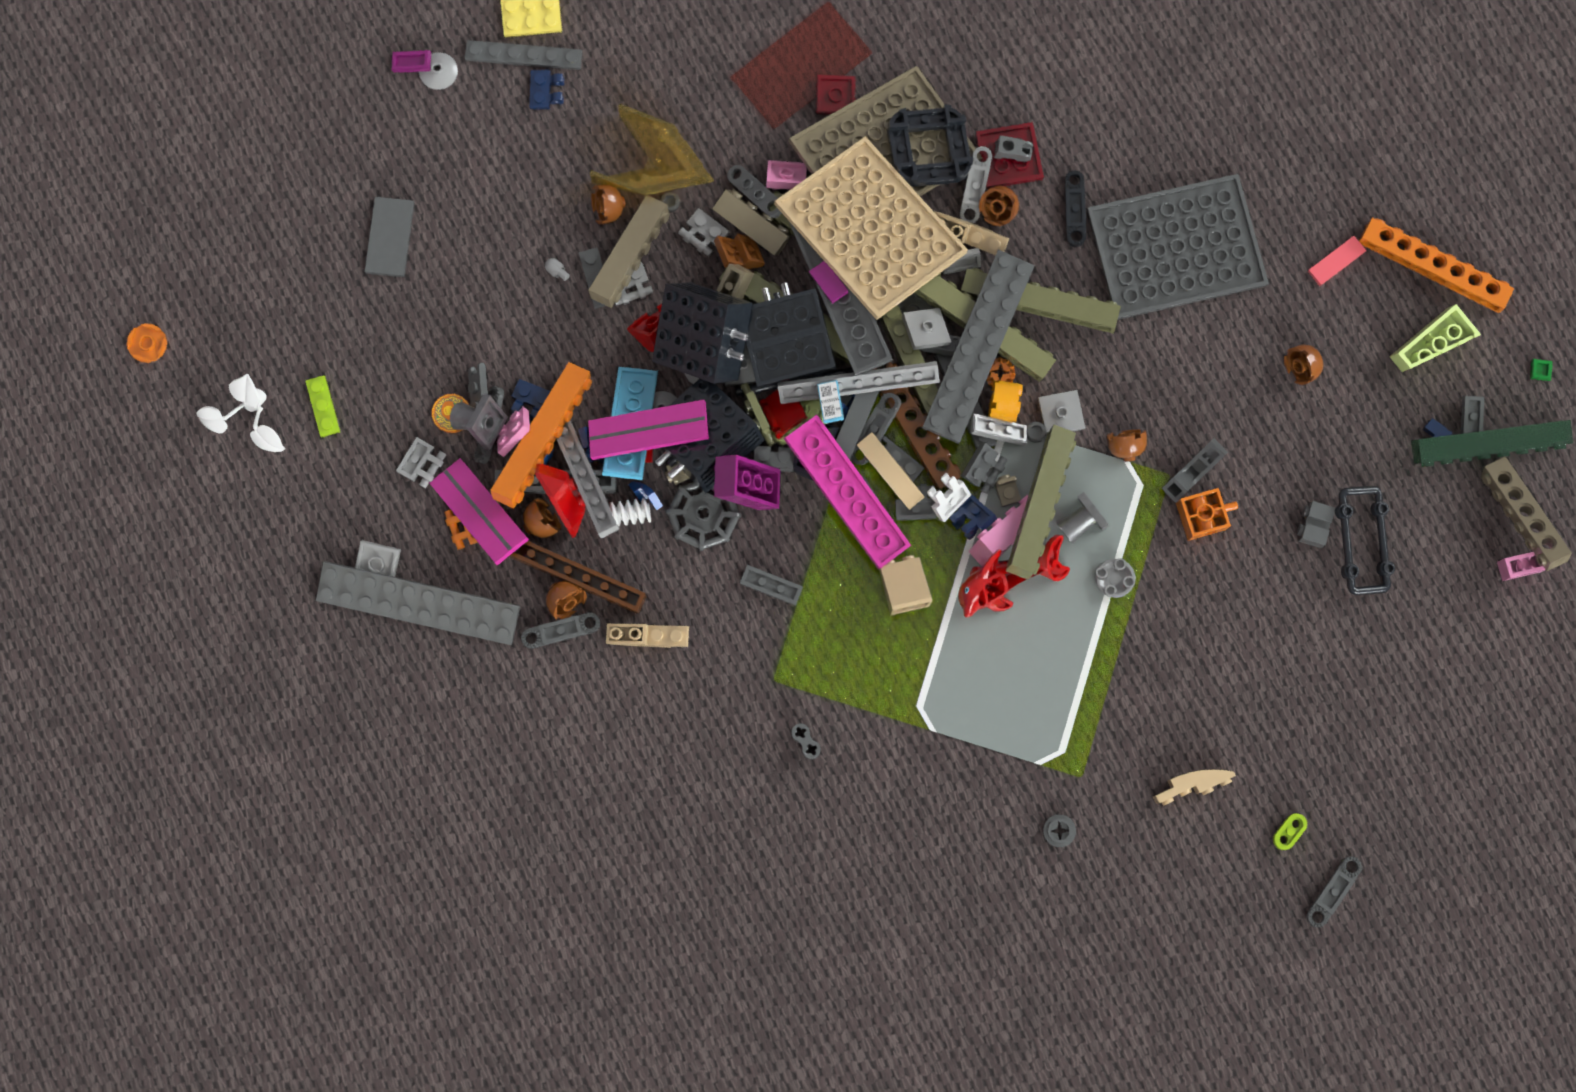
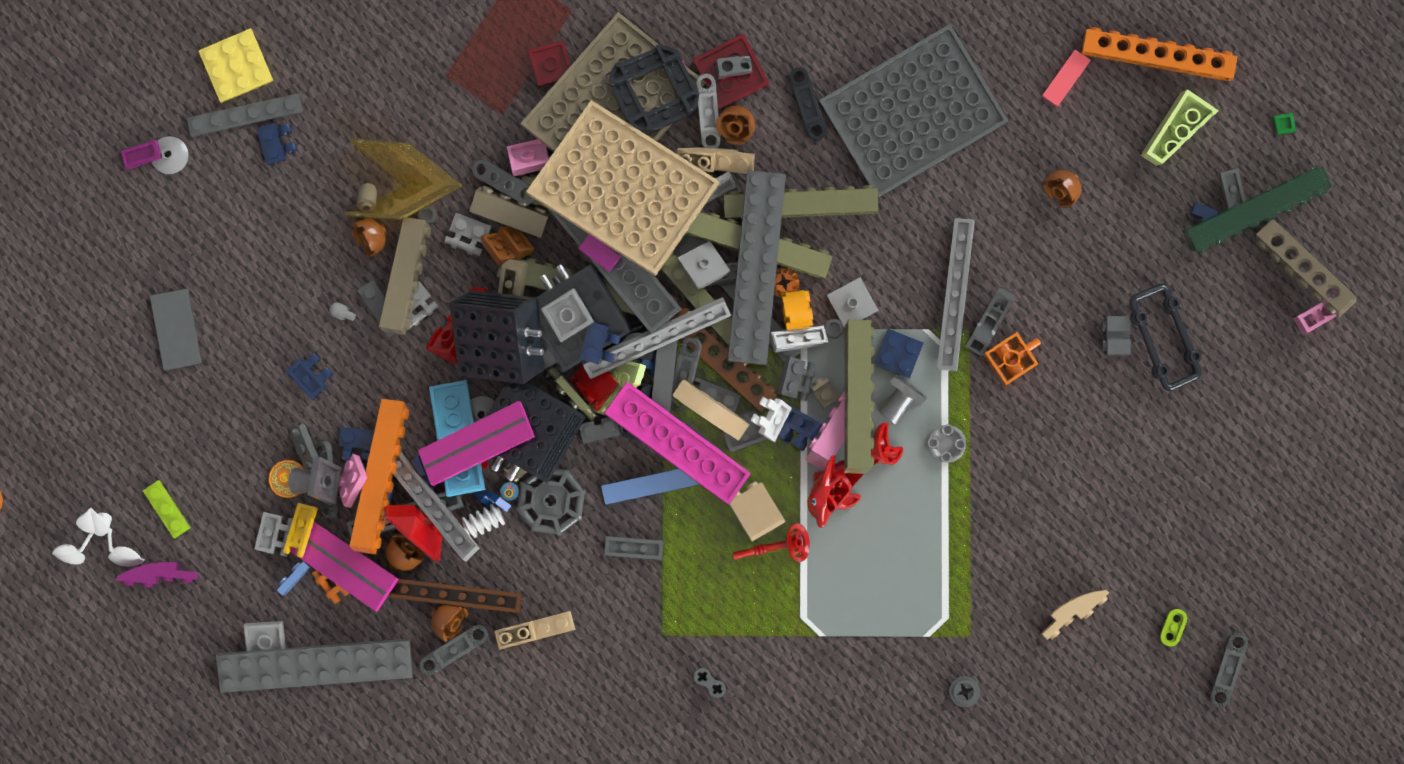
camera: 10 degrees left, 5 degrees up
(286, 462) = (150, 574): none -> magenta slope
(417, 514) = (287, 583): none -> medium blue plate
(447, 464) = (300, 529): none -> yellow hinge
(501, 321) = (306, 378): none -> dark blue plate
(616, 166) = (367, 197): none -> dark tan brick
(665, 492) = (509, 491): none -> tile
(747, 482) = (582, 463): magenta brick -> none
(778, 330) = (567, 315): none -> light grey plate
(797, 365) = (594, 344): none -> dark blue plate
(804, 528) = (646, 486): none -> medium blue tile
(830, 401) = (636, 365): tile -> none
(929, 627) = (790, 543): none -> red dish
(1093, 475) = (898, 353): none -> dark blue plate
(1127, 444) = (922, 314): dark orange cylinder -> none
(1166, 435) = (955, 294): none -> light grey plate

